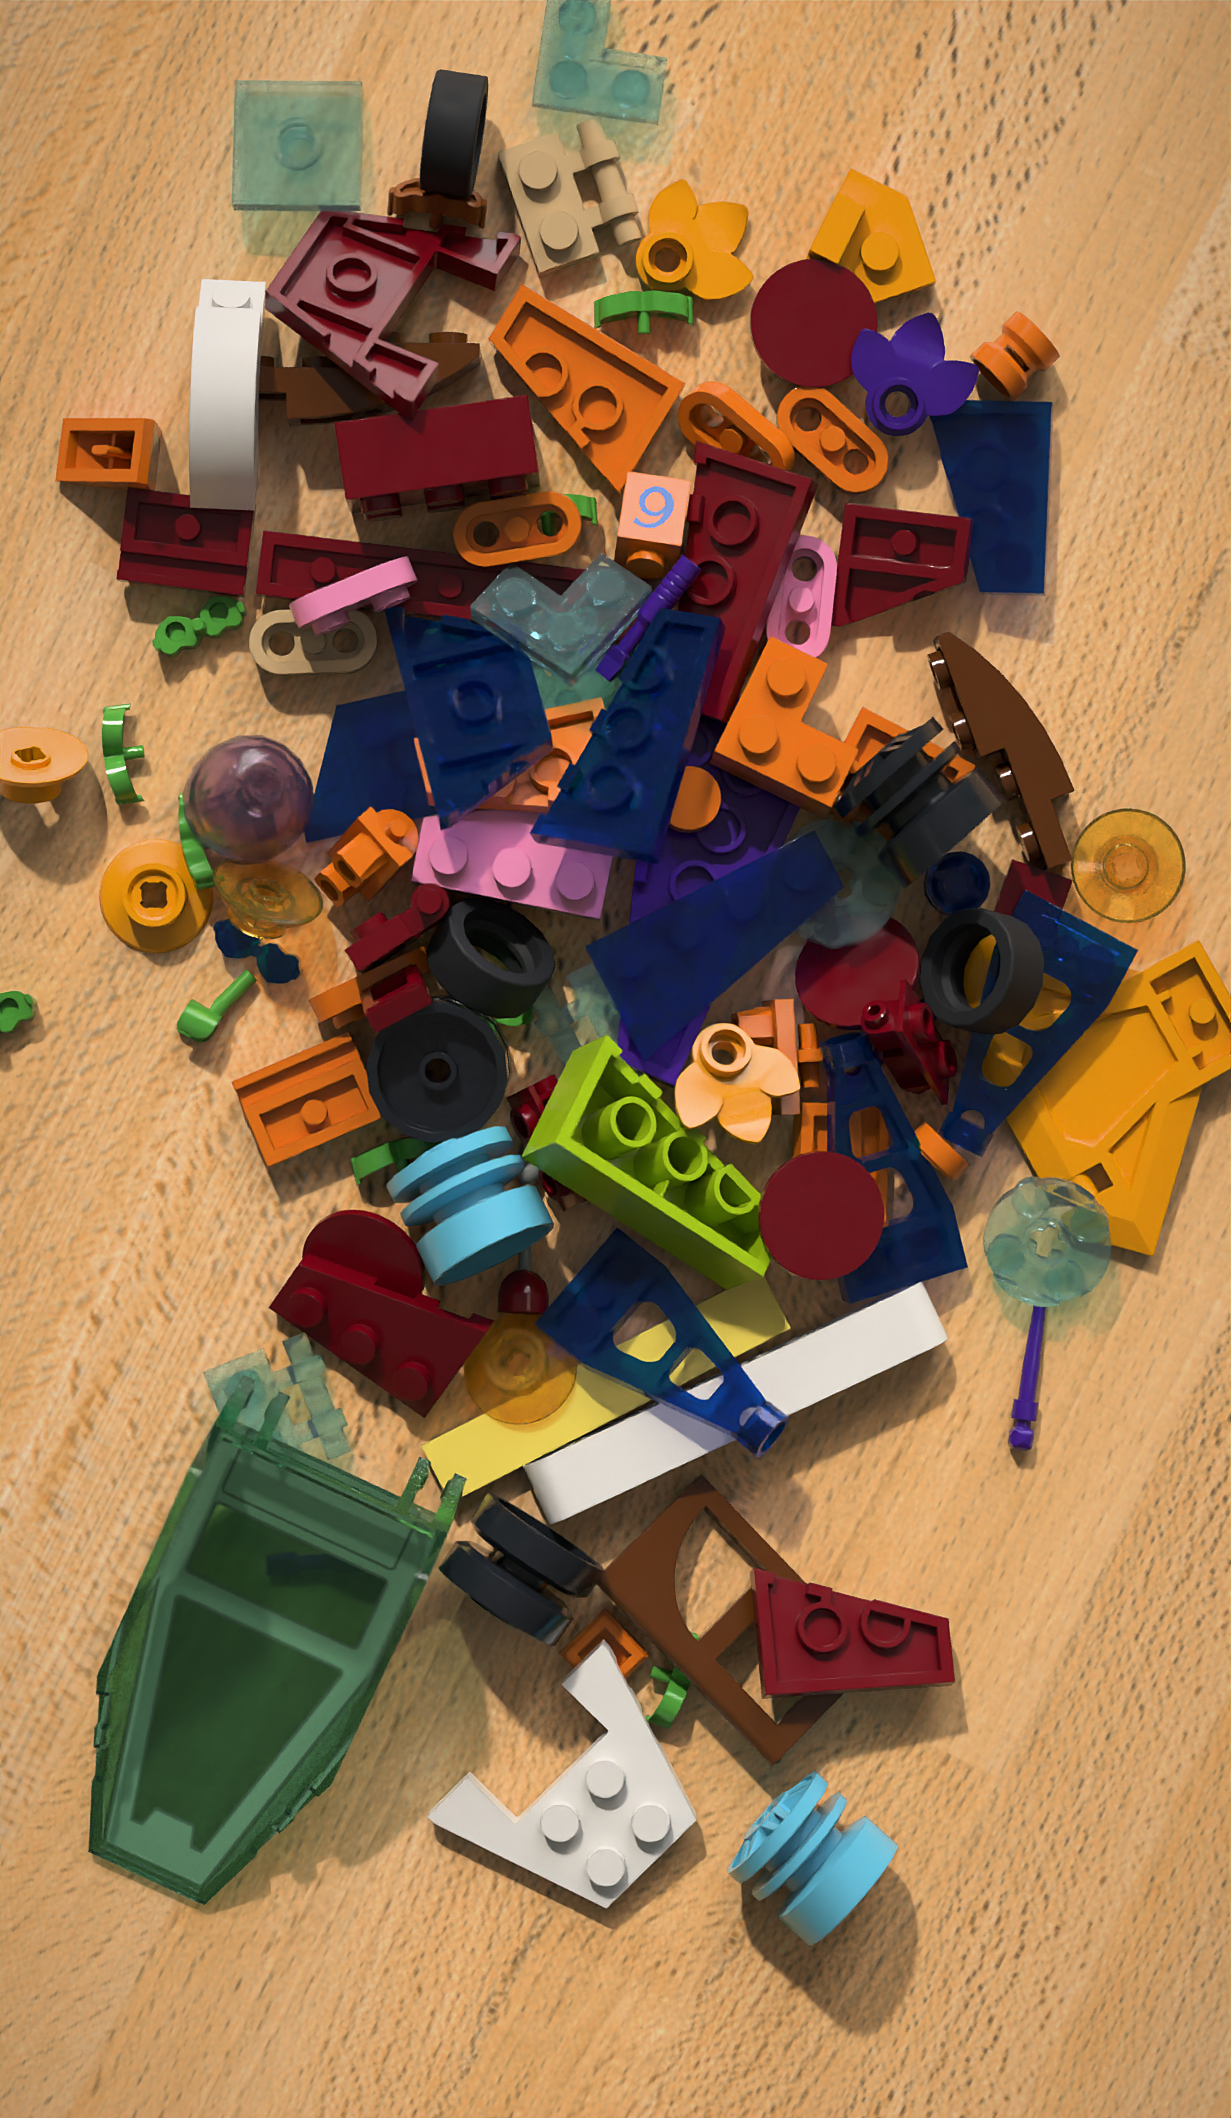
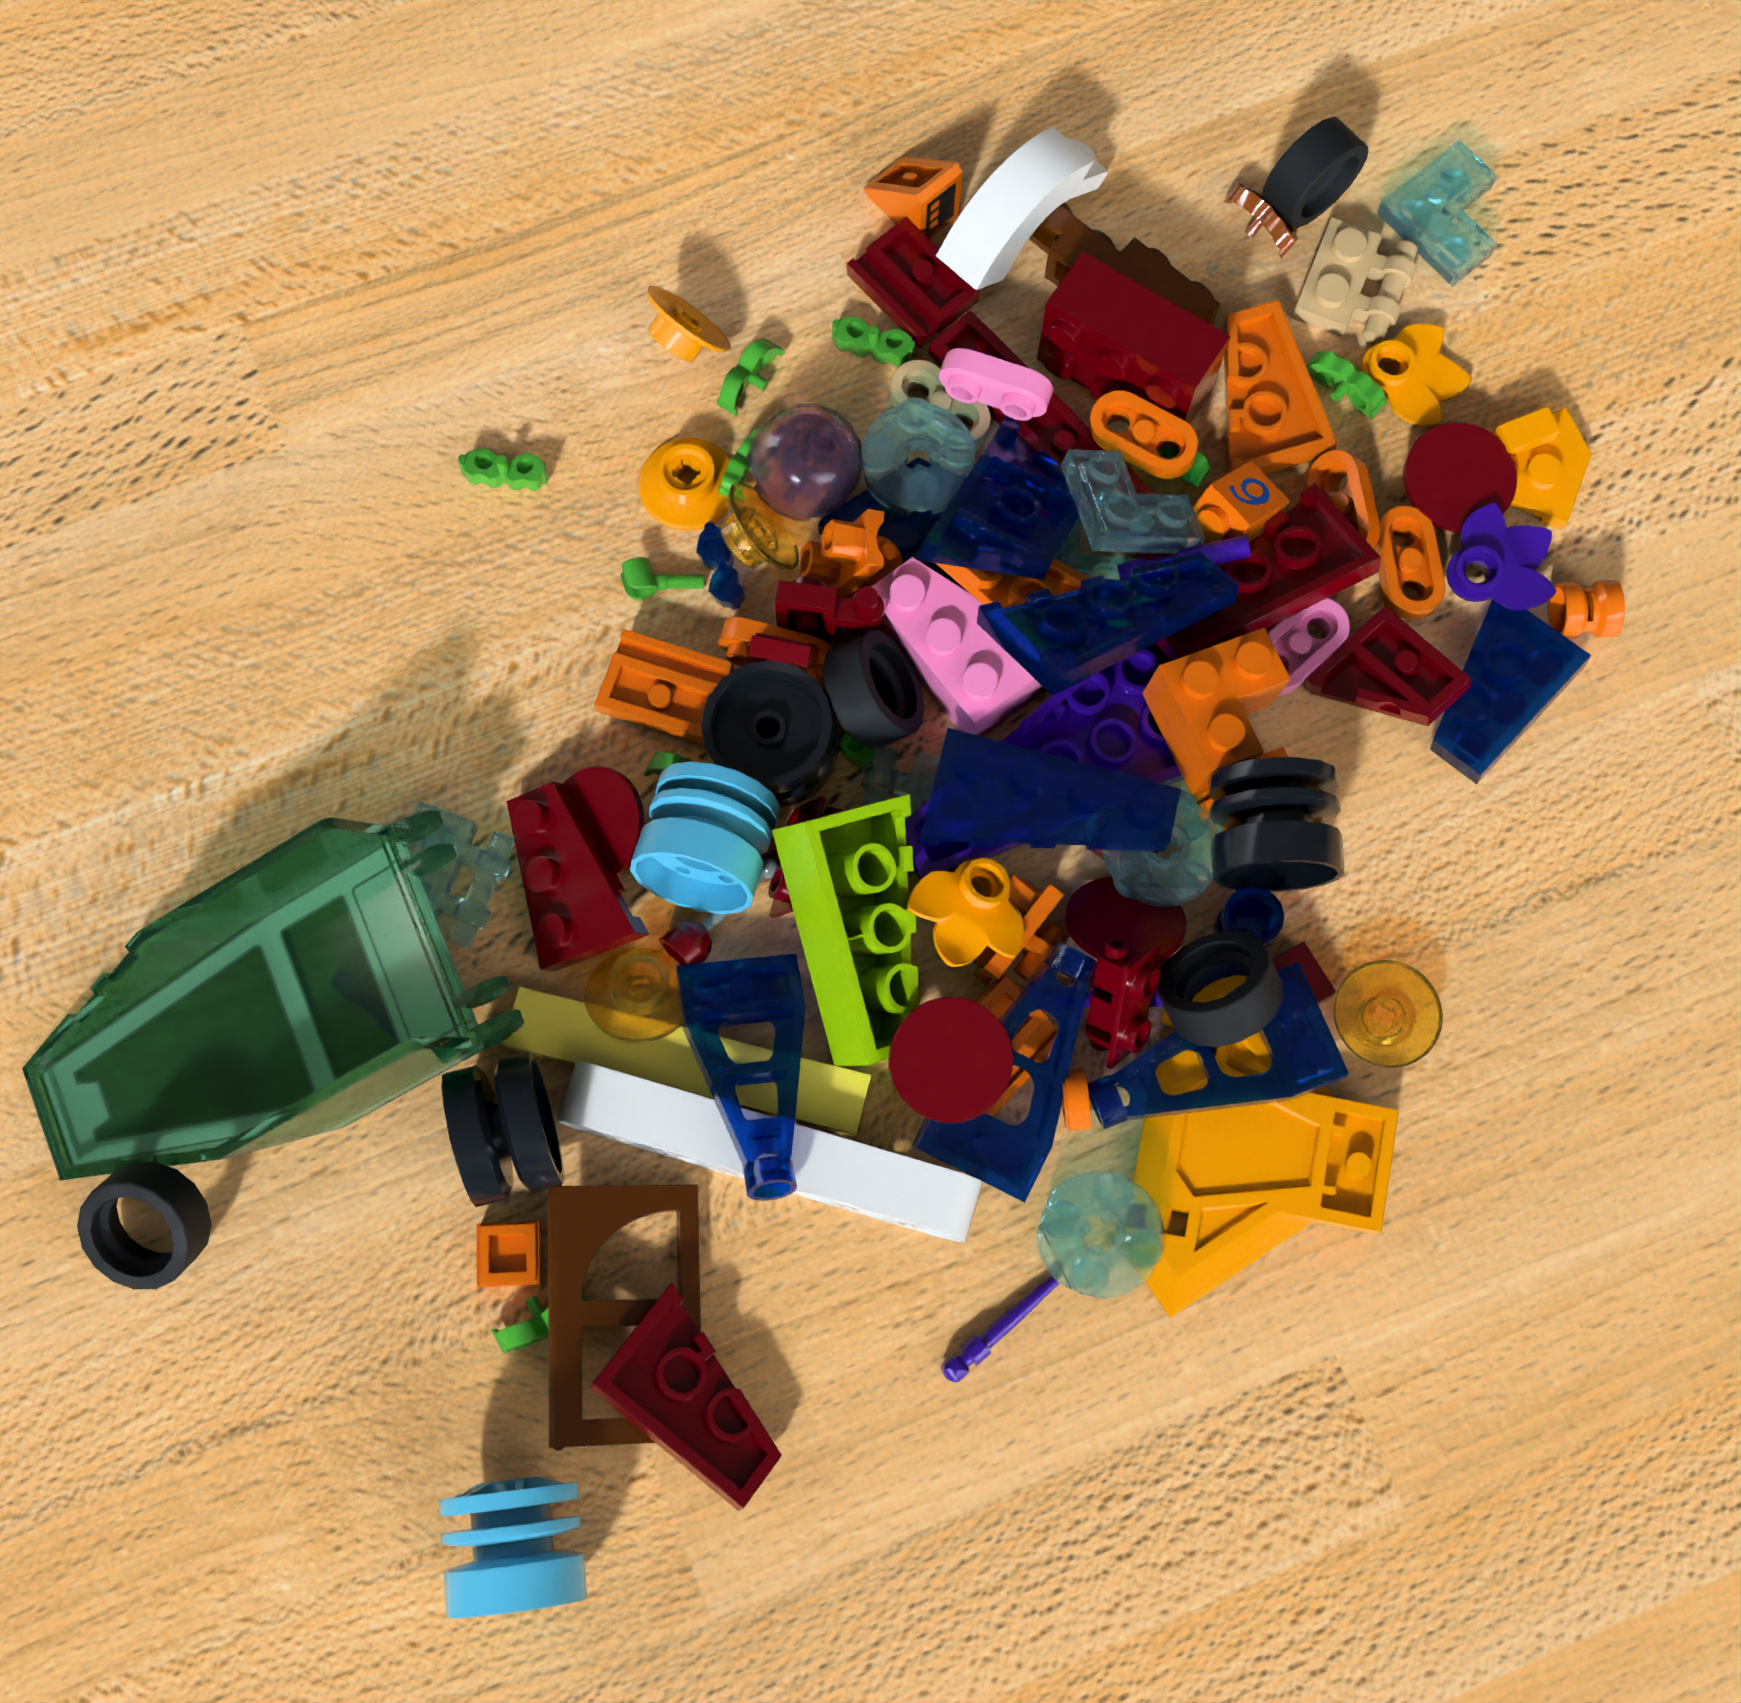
camera: 40 degrees right, 15 degrees down
(297, 145) = (1202, 115): clear light blue plate -> none
(317, 690) = (909, 428): none -> clear light blue plate
(320, 1915) = (122, 1257): none -> black tyre
(356, 281) = (1170, 208): dark red wing -> none
(602, 1815) = (395, 1373): white wing -> none
(696, 801) = (1107, 699): orange tile -> none
(998, 719) = (1377, 848): reddish brown slope -> none

